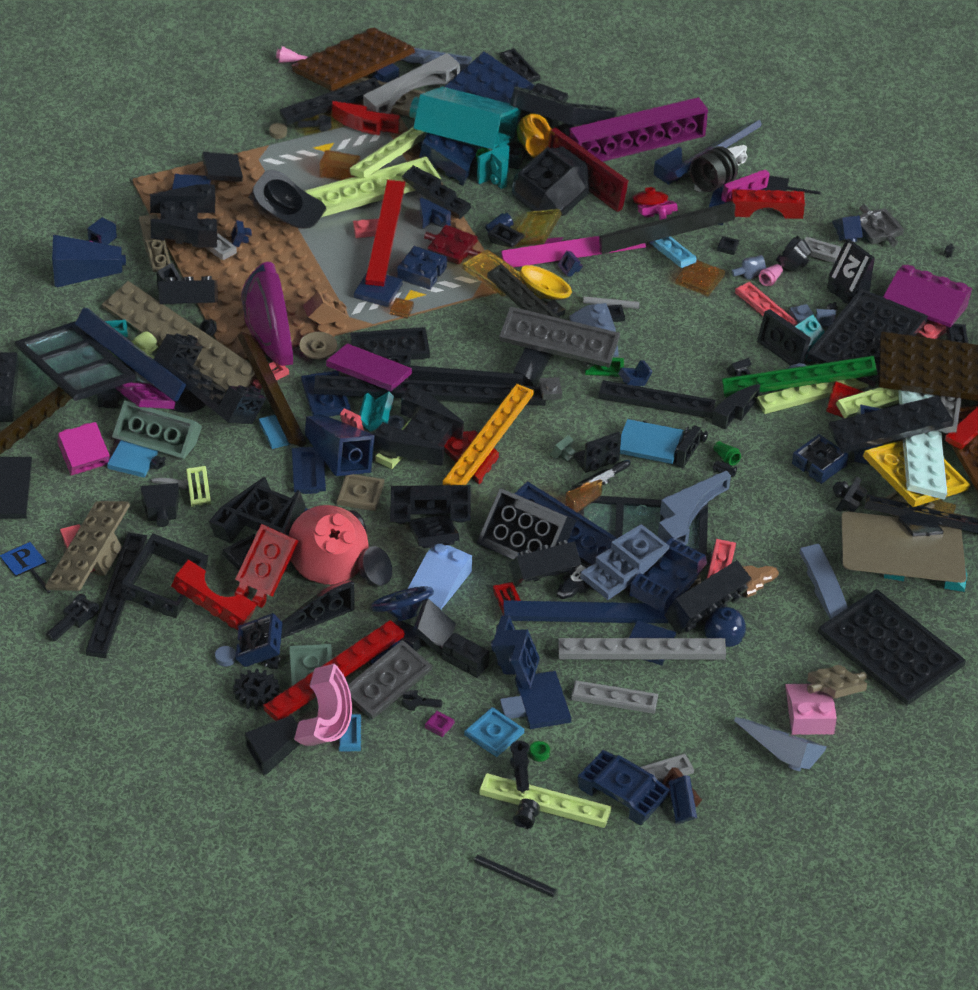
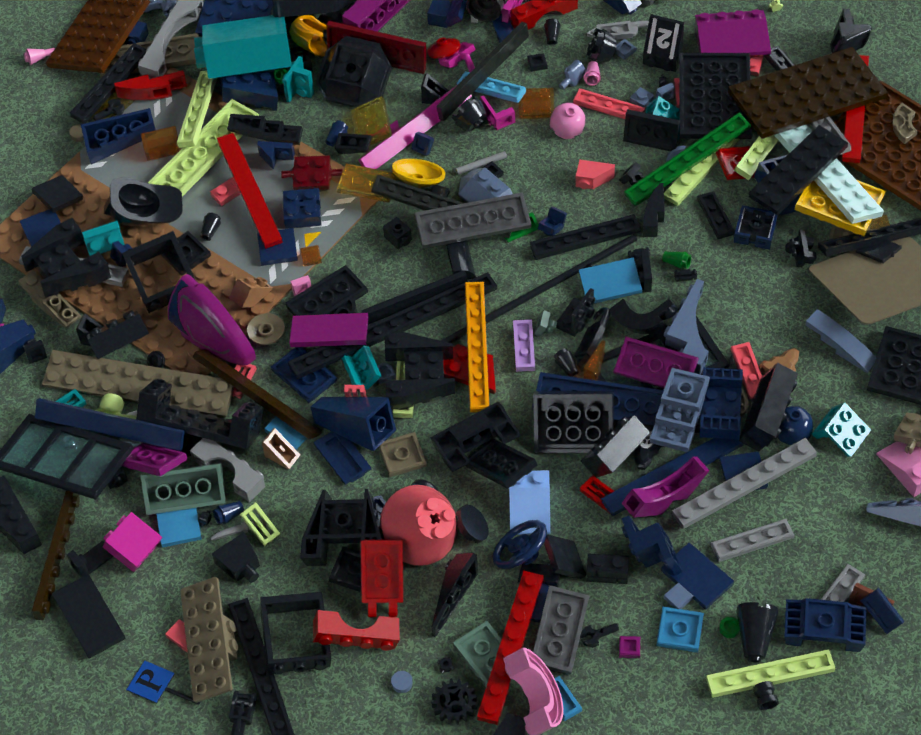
camera: 25 degrees left, 10 degrees up
(40, 449) = (90, 561): none -> black bracket
(114, 276) = (35, 351): none -> black tile
(178, 465) = (227, 512): none -> dark blue cone
(212, 447) = (247, 482): none -> light grey arch
(229, 211) = (102, 237): none -> teal bracket
(257, 438) = (279, 449): none -> medium nougat slope
(259, 640) = (425, 652): dark blue piece -> none
(261, 241) = (148, 251): none -> black window
(295, 258) = (193, 250): none -> black tile
(305, 141) = (115, 133): none -> dark blue wedge
(332, 246) = (210, 225): none -> black cone
(374, 324) = (300, 285): none -> bright pink tile
(490, 322) = (397, 233): none -> black brick
(520, 764) = (728, 650): black connector -> none
(532, 457) = (524, 345): none -> lavender plate
(550, 388) = (494, 272): flat silver bracket -> none
(553, 620) = (657, 497): none -> magenta arch
(558, 758) = (756, 628): none -> black cone
(559, 484) = (566, 361): none -> black cone
(590, 422) = (544, 287): none -> black piece
(609, 222) = (431, 90): none -> black slope
(626, 511) = (651, 362): none -> magenta tile
(628, 257) = (470, 114): none -> black cone
(655, 274) = (500, 119): none -> dark pink bracket
(655, 486) = (643, 323): none -> black arch
(704, 353) = (593, 174): none -> coral slope
(715, 301) = (567, 120): none -> bright pink cylinder
(762, 224) = (552, 30): none -> black cone
(768, 651) = (843, 428): none -> bracket
(793, 434) = (716, 215): none -> black tile
(818, 268) = (625, 49): none -> sand blue tile

